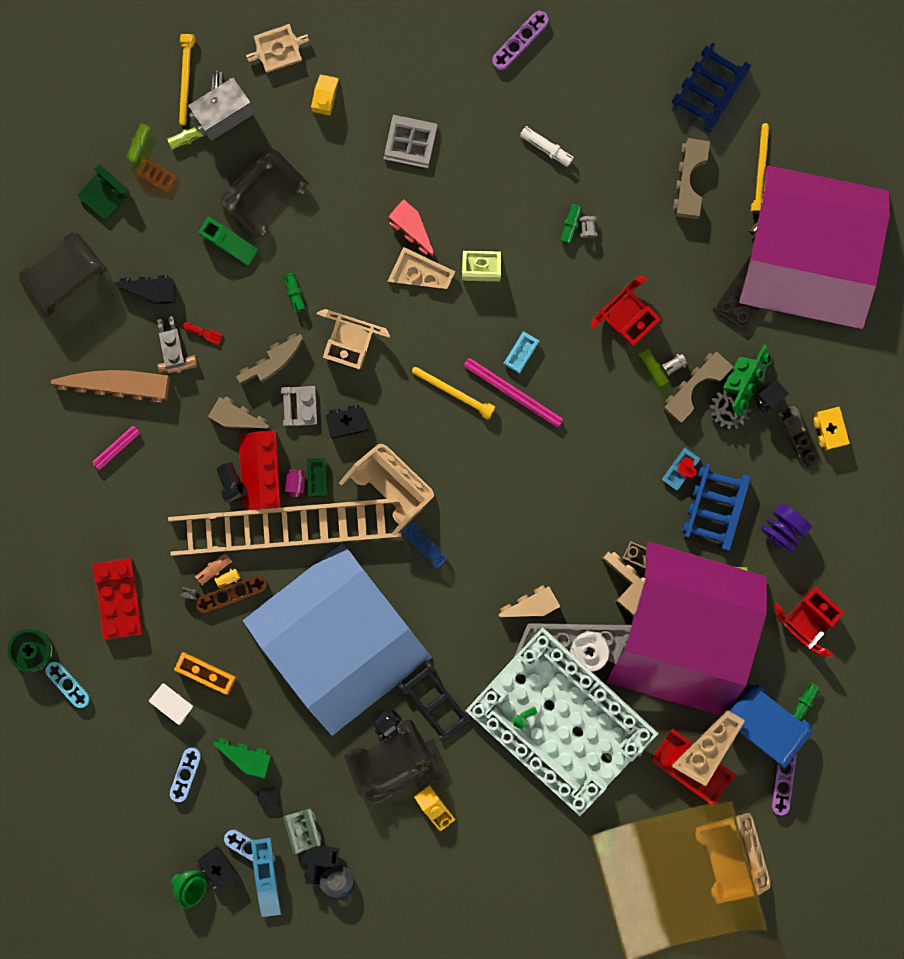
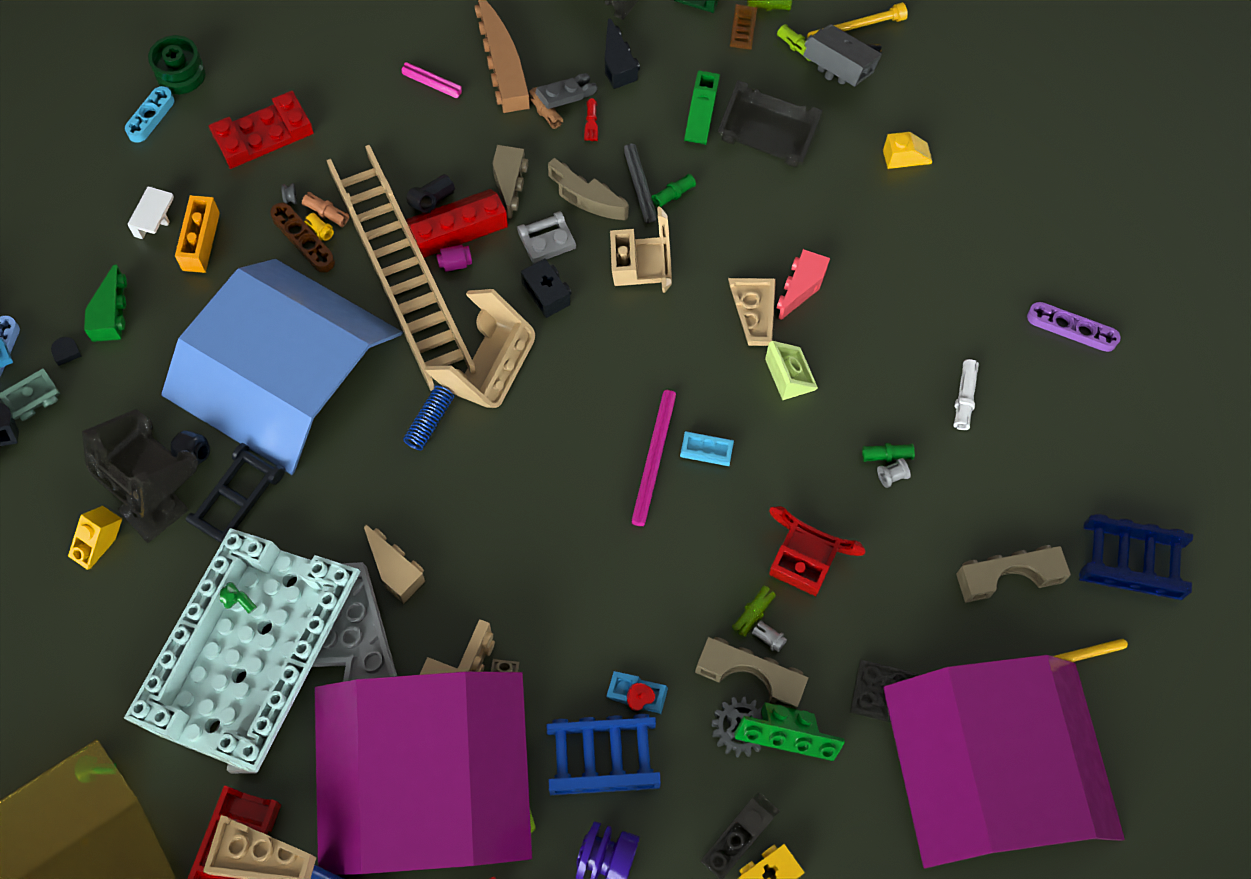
camera: 65 degrees right, 20 degrees down
(185, 790) = (65, 250): light blue beam -> none
(273, 315) = (640, 183): none -> dark grey axle
(277, 48) = (934, 93): tan plate -> none
(317, 477) = (469, 279): dark green plate -> none
(410, 141) = (899, 252): light grey piece -> none
(485, 409) = (619, 433): yellow piece -> none
(593, 640) = (360, 653): white plate -> none
(771, 396) = (779, 771): black brick -> none

